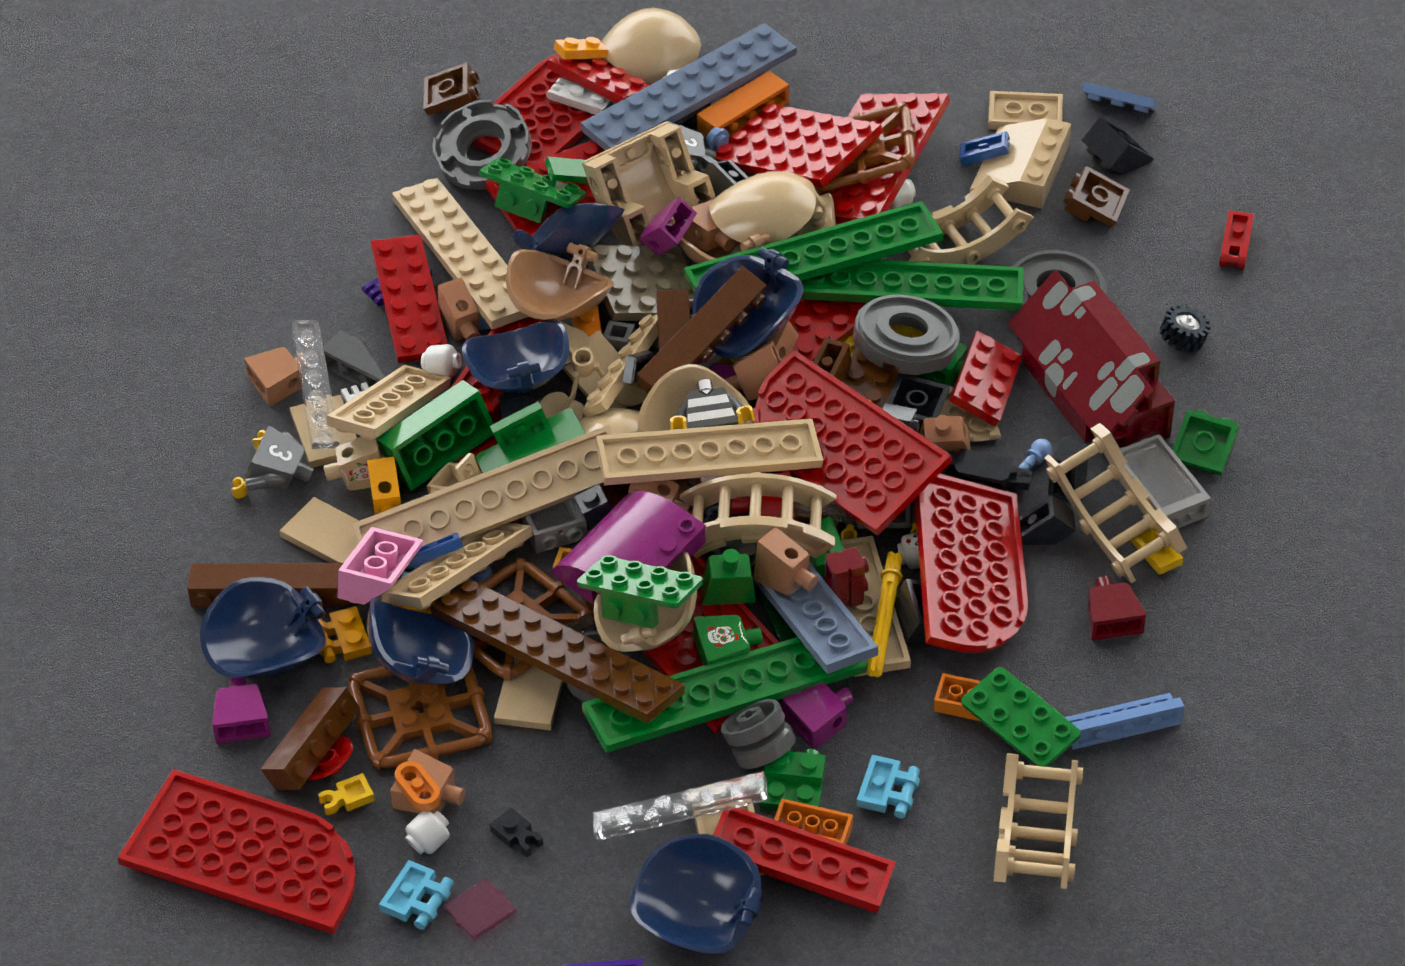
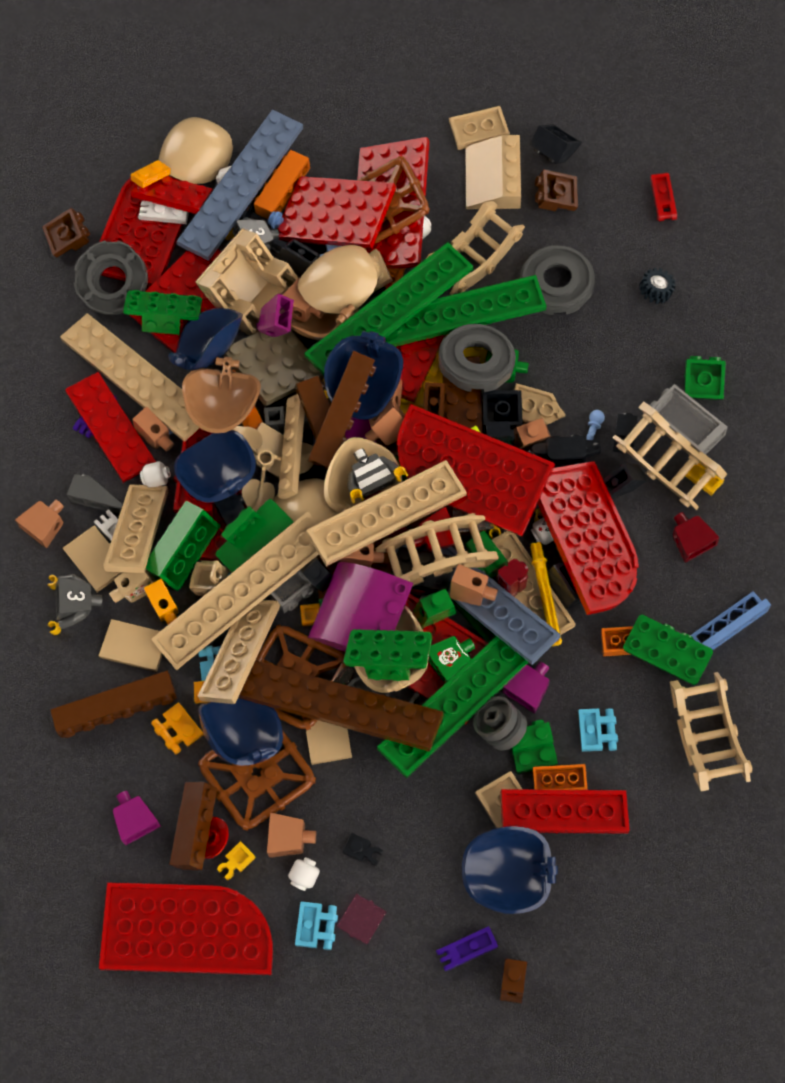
camera: 15 degrees left, 20 degrees up
(262, 628) = (125, 751): dark blue piece -> none
(314, 383) = (74, 526): clear plate -> none
(375, 565) = (187, 674): bright pink slope -> none
(419, 788) = (287, 847): orange plate -> none
(436, 549) = (218, 643): blue tile -> none
(566, 170) = (184, 285): tile -> none
(634, 364) = (304, 447): black tile -> none
(680, 806) = (470, 799): clear plate -> none
(984, 148) = (465, 173): blue tile -> none
(986, 378) = (540, 372): red plate -> none
(1092, 362) = (610, 341): dark red panel -> none
(1119, 98) = (540, 98): medium blue plate -> none

